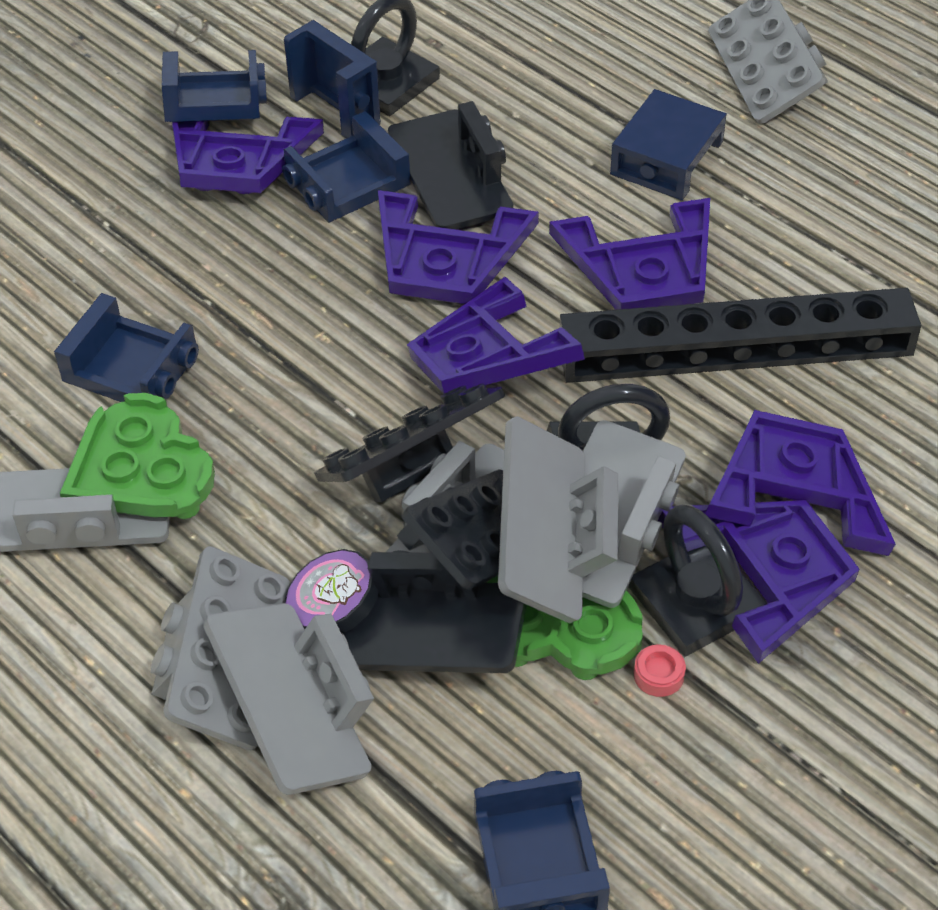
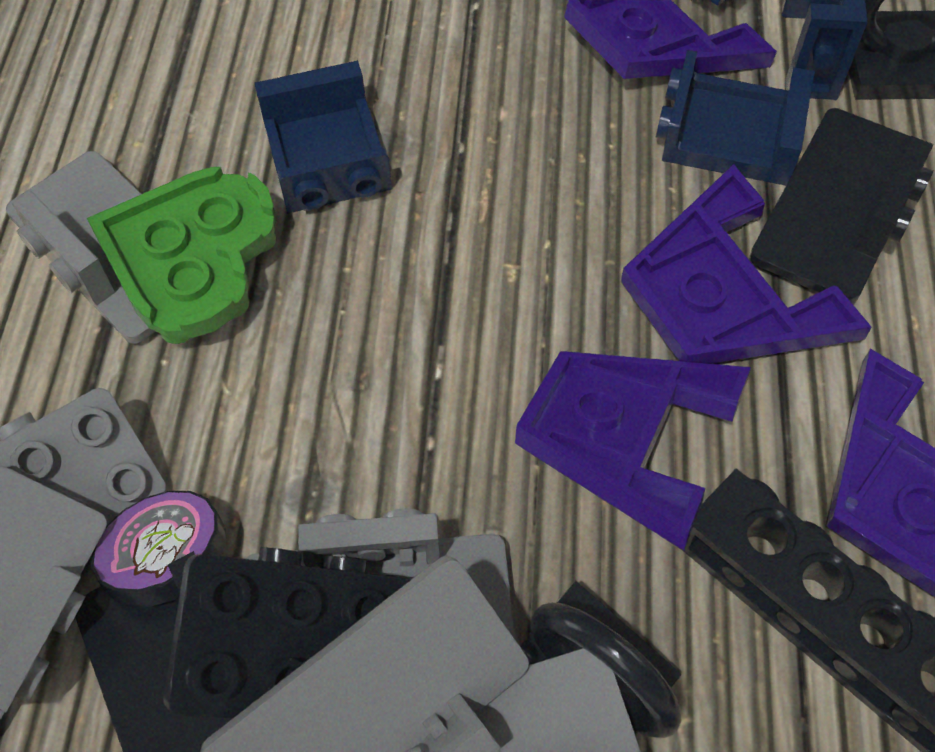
camera: 50 degrees right, 10 degrees up
(406, 454) = (397, 464): black bracket -> none

